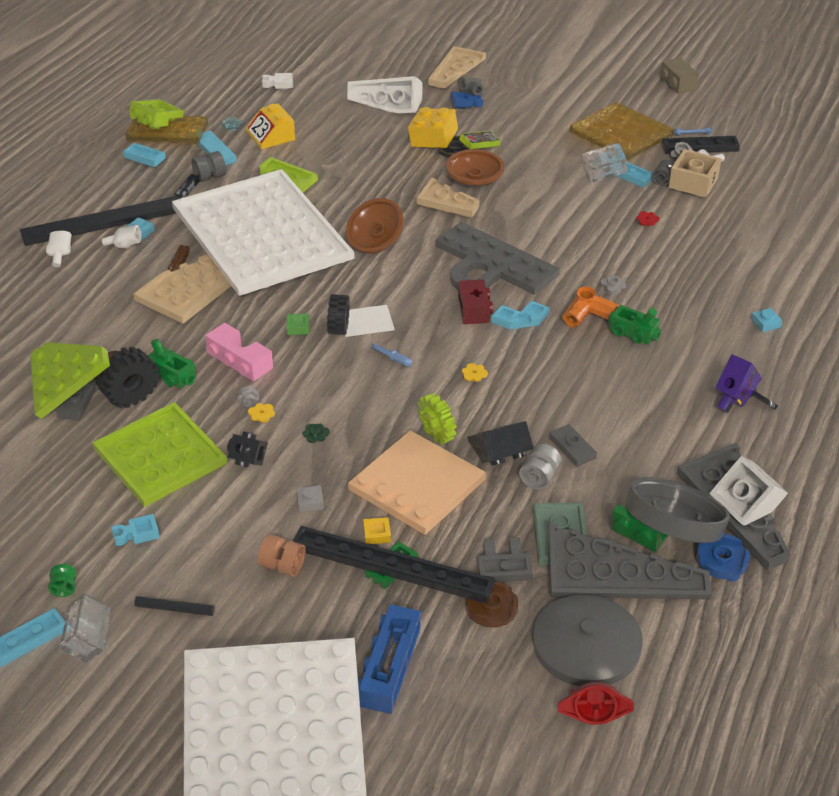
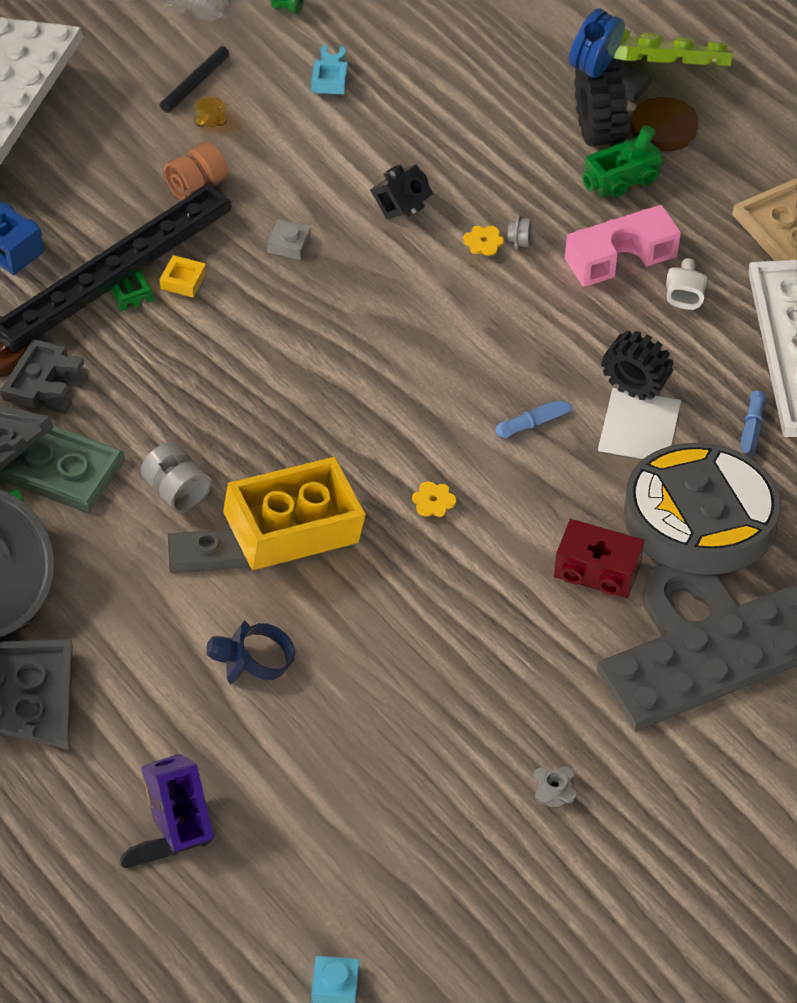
camera: 115 degrees right, 10 degrees up
(118, 344) = (596, 42): none -> blue head
(159, 453) = (461, 123): lime plate -> none
(209, 580) = (210, 112): none -> clear yellow plate
(256, 321) = (686, 286): none -> white piece
(297, 324) = (660, 327): bright green plate -> none
(315, 432) = (415, 287): clear green plant -> none
(344, 280) = (753, 423): none -> medium blue piece
(417, 276) = (702, 508): none -> piece
(417, 482) = (251, 354): light nougat plate -> none
(436, 418) = (329, 386): lime gear -> none
(502, 442) = (252, 446): black slope -> none
(531, 315) = (538, 606): medium azure tile -> none
(537, 401) = (293, 513): none -> yellow brick
(585, 304) = (501, 721): orange piece -> none
(630, 404) = (237, 659): none -> dark blue piece
(635, 324) = (416, 749): green brick -> none
(647, 219) = (738, 942): red plant -> none

